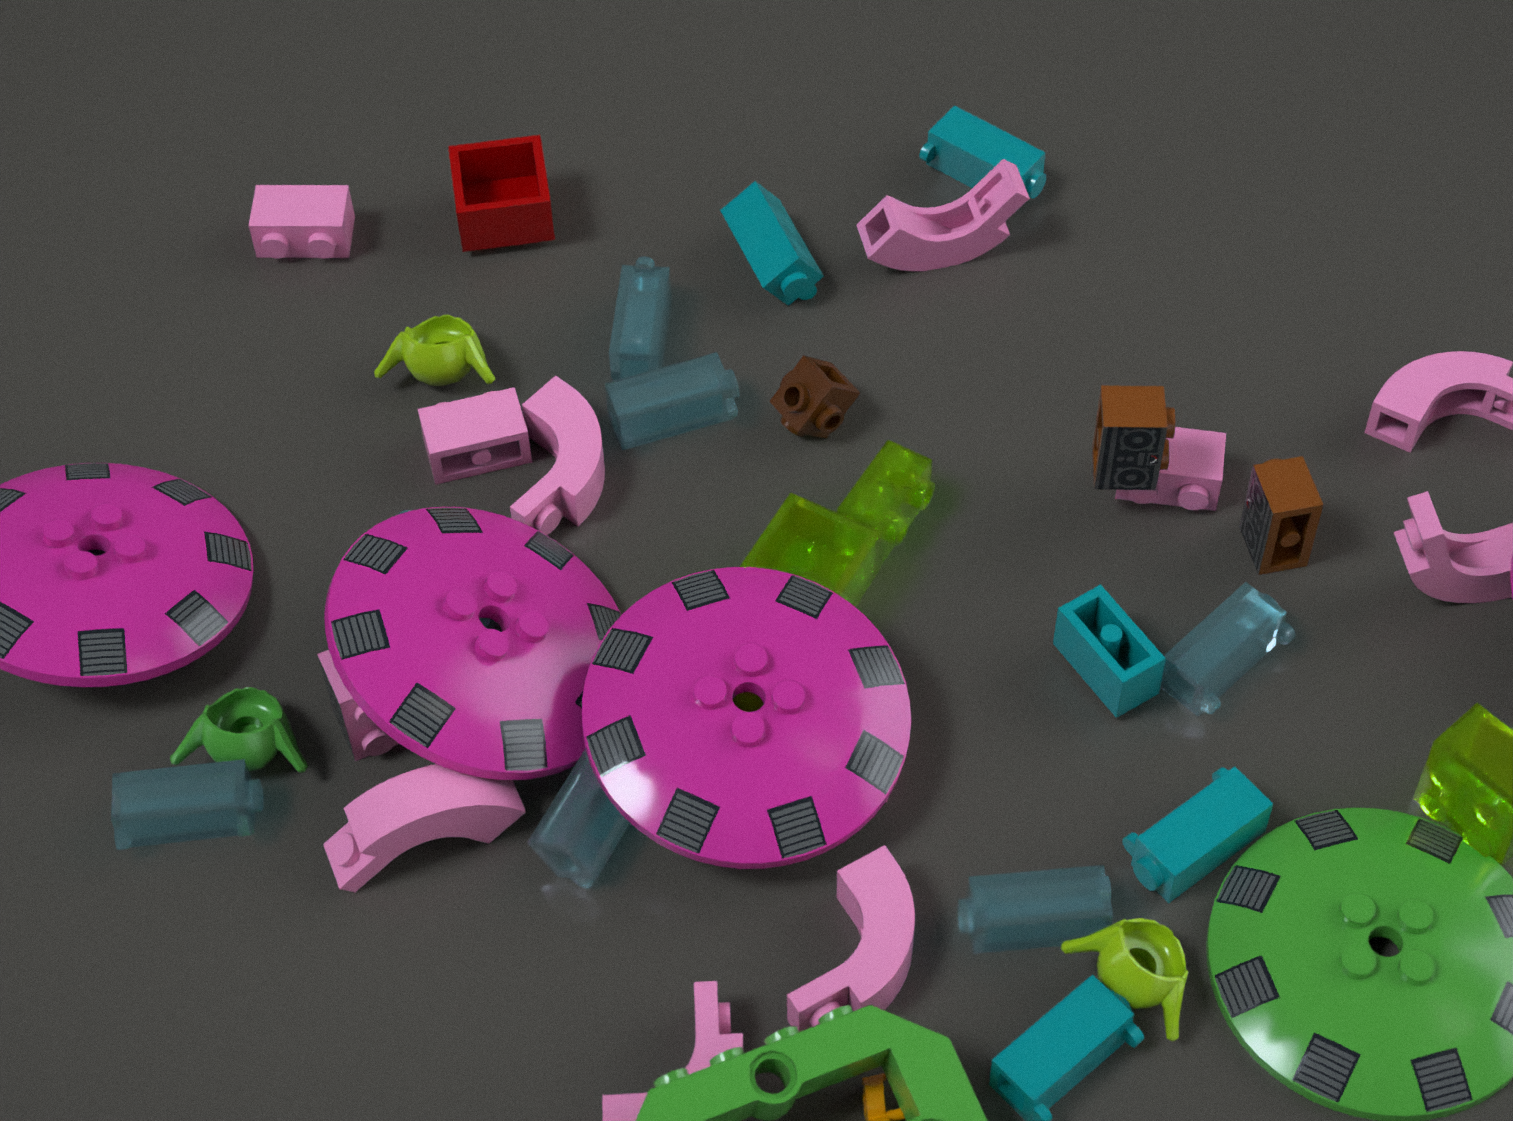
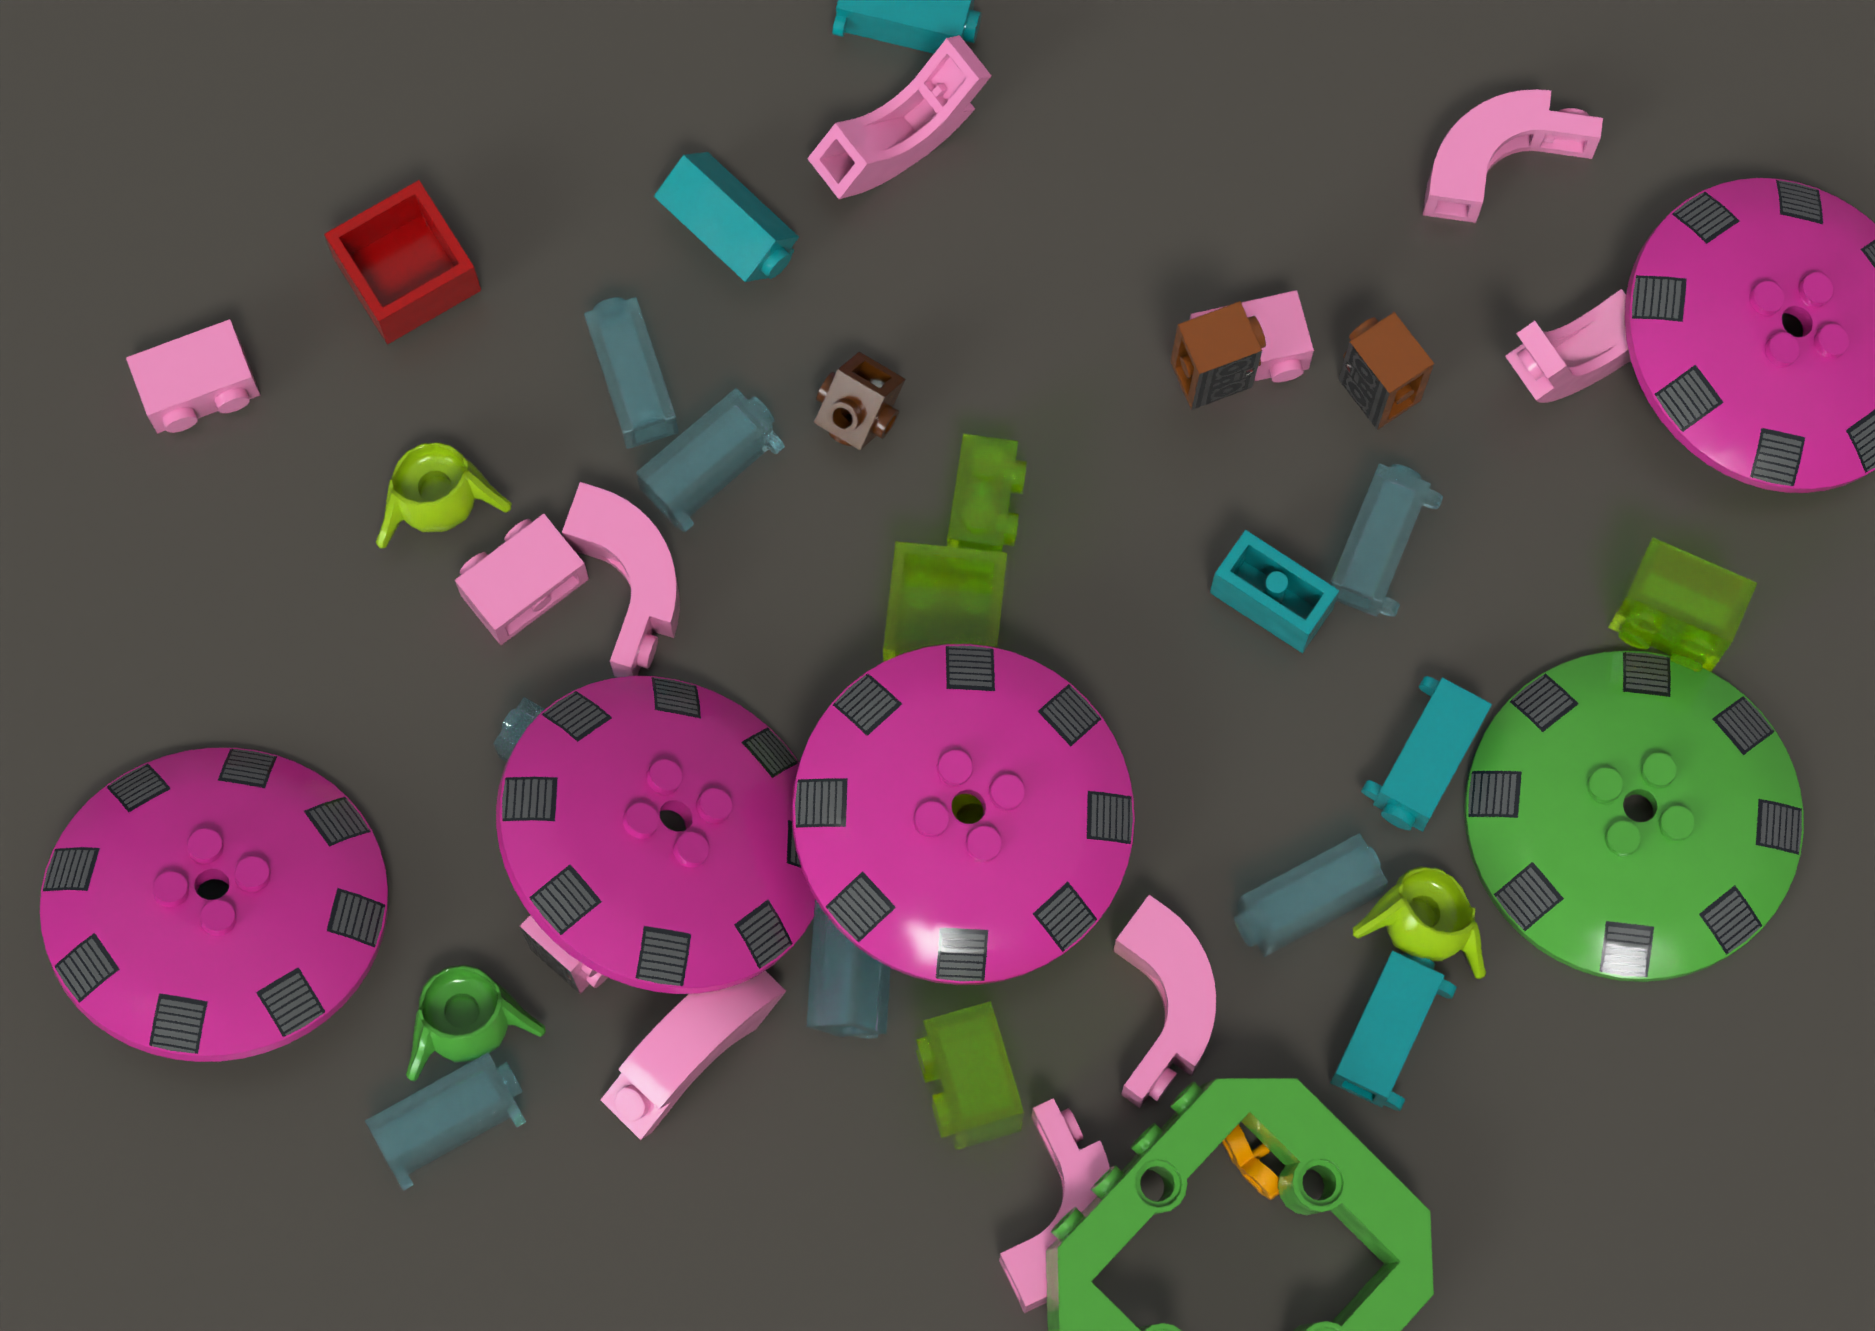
camera: 25 degrees left, 20 degrees up
(649, 934) = (972, 1076): none -> clear neon green piece

